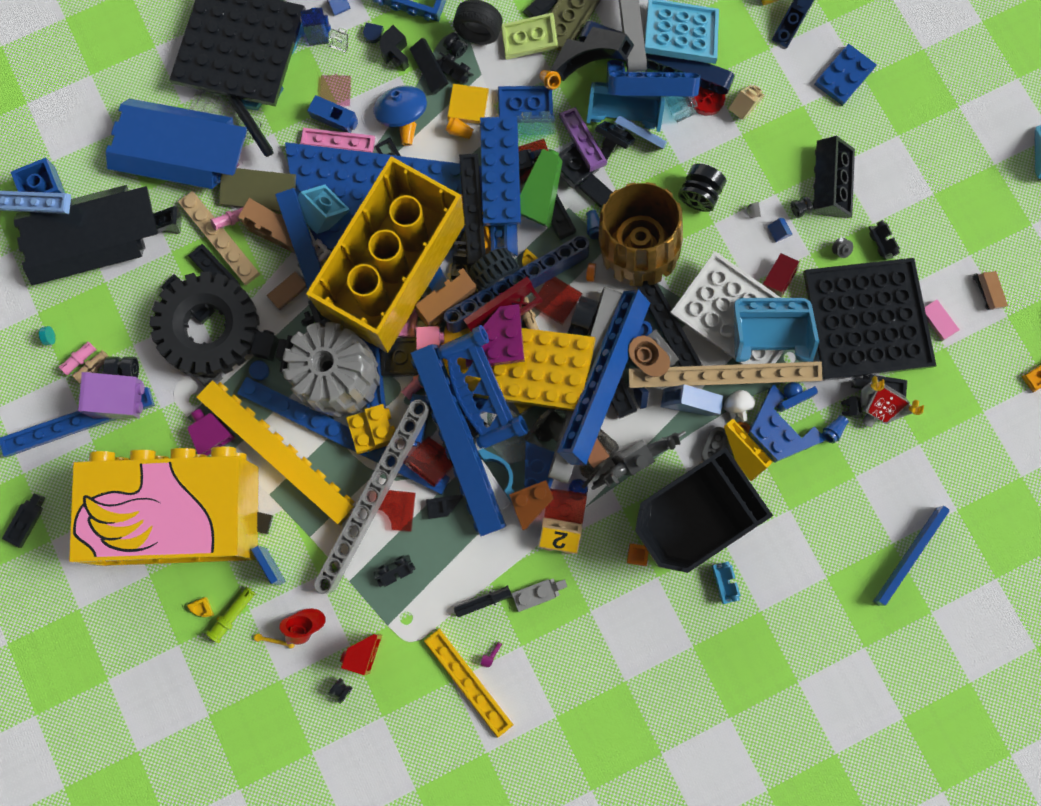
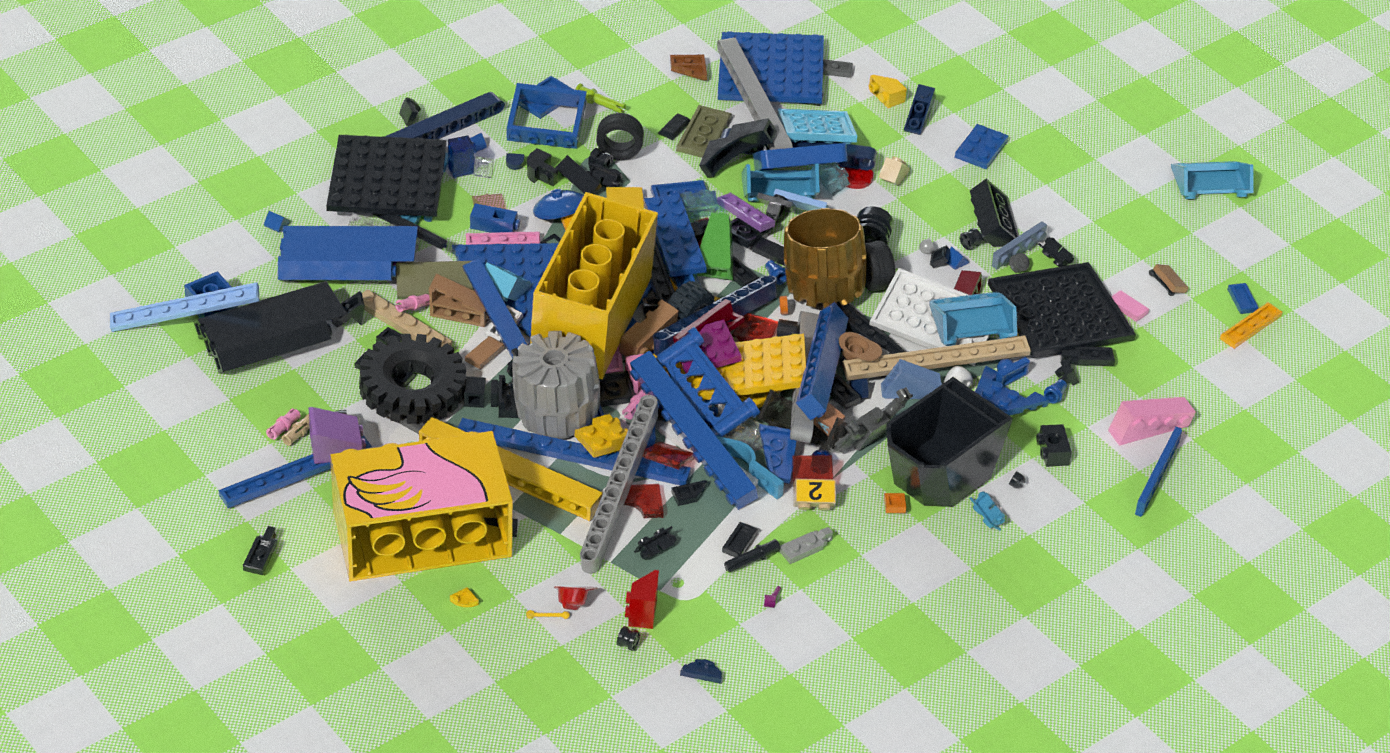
camera: 15 degrees left, 35 degrees down
(47, 335) = (247, 410): teal tile -> none
(126, 84) = (275, 221): none -> blue slope
(225, 622) = (493, 602): lime pin -> none
(259, 370) = (473, 412): blue tile -> none
(268, 565) = (529, 546): blue tile -> none
(403, 737) = (702, 670): none -> dark blue tile
(468, 683) = (756, 621): yellow tile -> none
(477, 576) = (740, 539): none -> black tile
(529, 36) = (671, 146): yellowish green tile -> none
(531, 502) = (778, 464): dark orange wing -> none
(550, 79) = (701, 172): light orange cone -> none
(696, 241) = (879, 266): none -> black tyre
(764, 227) = (940, 256): none -> black tile
(766, 542) = (1016, 479): none -> black hinge
(821, 495) = (1054, 445): none -> black brick
(844, 227) = (1019, 245): none -> sand blue plate
(885, 403) = (1093, 360): torso -> none
(922, 486) = (1149, 418): none -> bright pink wedge

